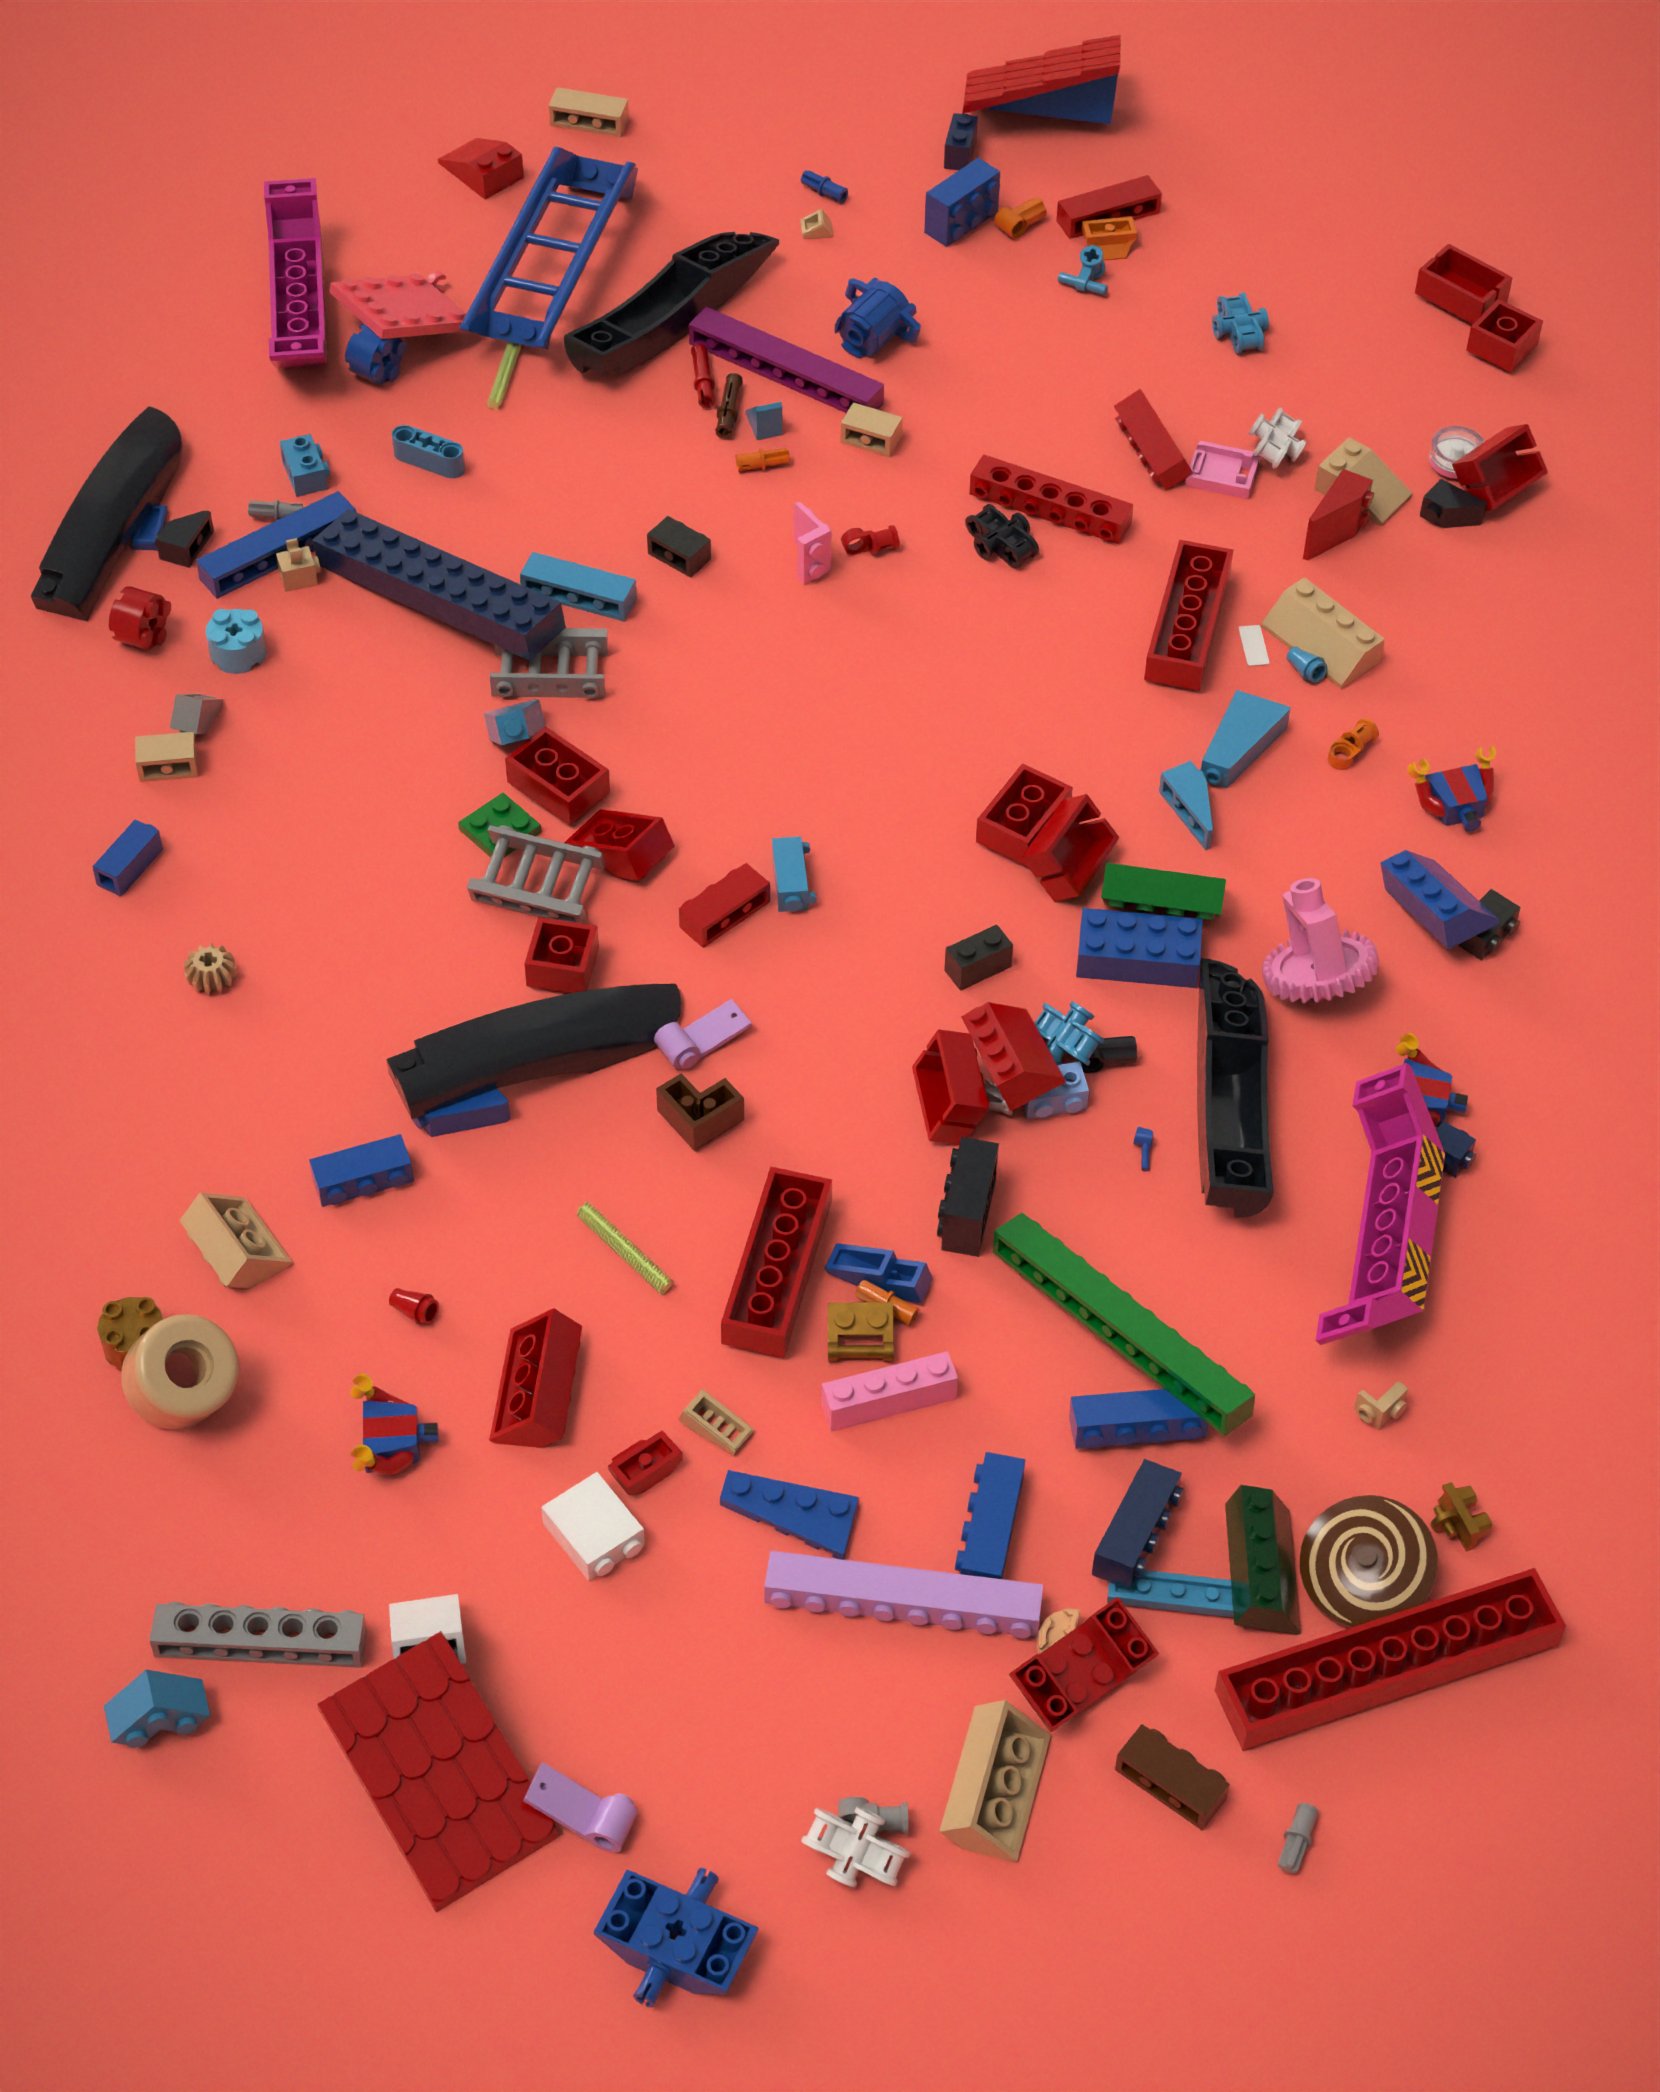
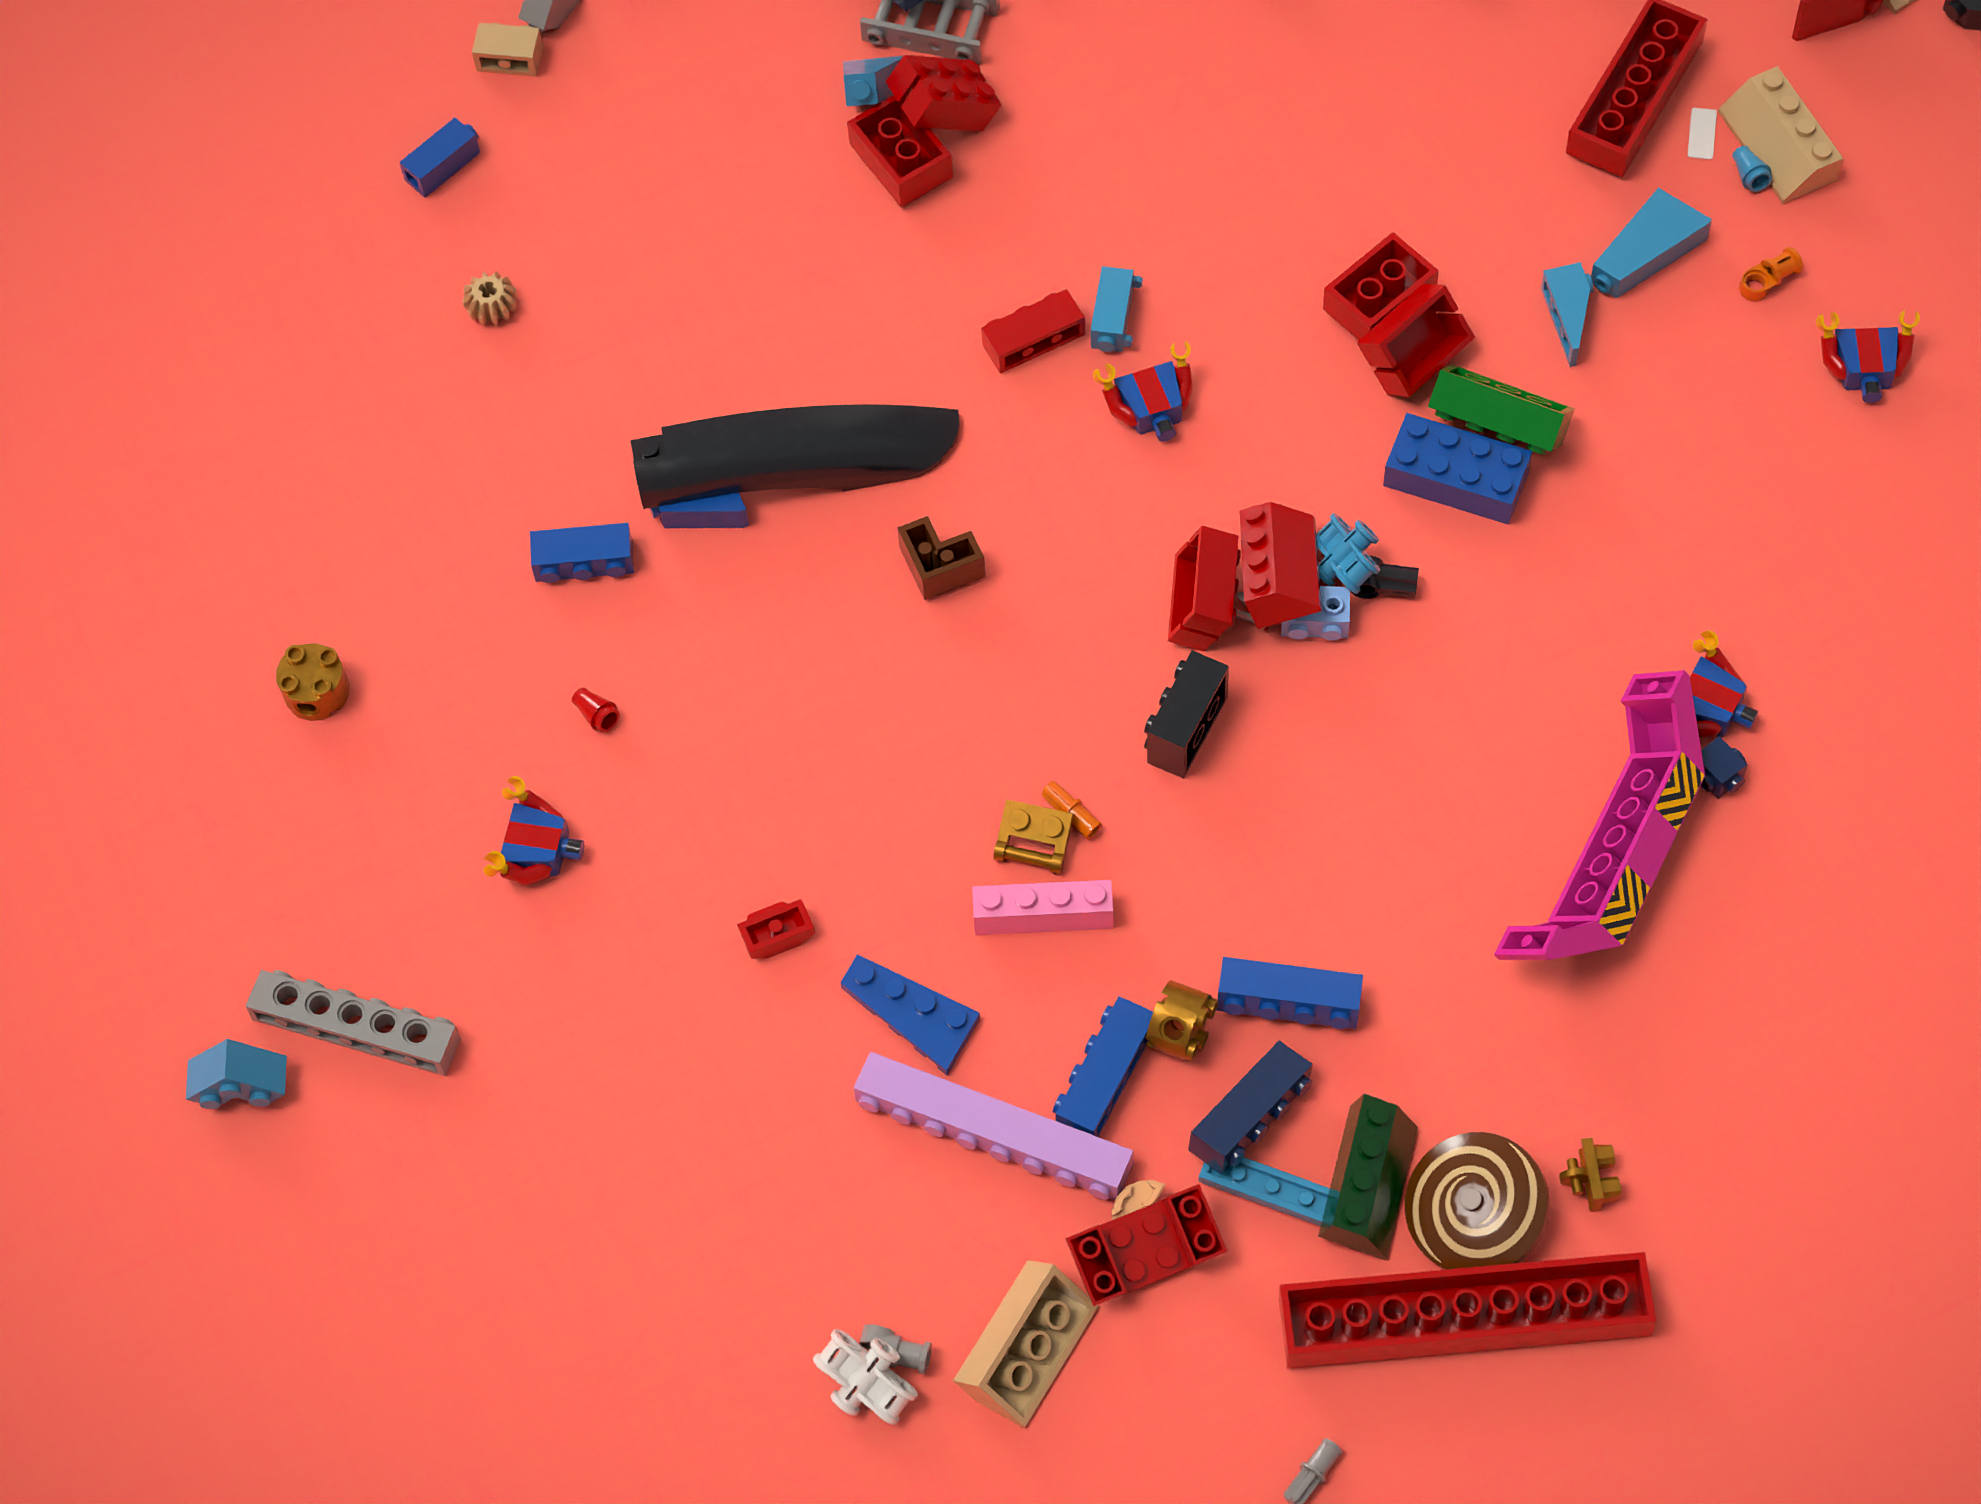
camera: 20 degrees right, 10 degrees up
(156, 1396) = (377, 735): tan piece -> none
(234, 1240) = (437, 601): tan slope -> none
(422, 1618) = (510, 1060): white brick -> none
(437, 1770) = (480, 1204): red piece -> none
(497, 812) = (827, 194): green plate -> none
(536, 1381) = (694, 817): red slope -> none
(540, 903) = (845, 291): light grey fence -> none
(561, 955) = (846, 356): red brick -> none
(586, 720) = (944, 94): none -> red piece
(593, 1526) = (706, 984): white brick -> none
(596, 1819) = (612, 1275): lavender door -> none
(624, 1248) = (823, 692): yellowish green axle -> none
(627, 841) = (947, 238): red slope -> none
(701, 1037) = (955, 480): lavender door -> none
(707, 1941) = (643, 1397): blue slope -> none
(713, 1407) = (854, 875): tan slope -> none
(776, 1262) = (969, 742): red brick -> none
(849, 939) = (1150, 397): none -> torso
(881, 1267) = (1075, 774): blue slope -> none
(978, 957) = (1282, 444): pearl dark grey brick -> none
(1044, 1478) = (1180, 1021): none -> pearl gold brick
(1124, 1324) = (1303, 890): green brick -> none
(1144, 1138) = (1396, 685): blue hand -> none
(1172, 1776) = (1205, 1379): reddish brown brick -> none
(1232, 1091) = (1504, 653): black slope -> none
(1317, 958) = (1644, 525): bright pink piece -> none
(1381, 1411) = (1557, 1038): tan bracket -> none
(1435, 898) = (1799, 477): blue slope -> none
(1491, 939) = (1847, 517): pearl dark grey brick -> none

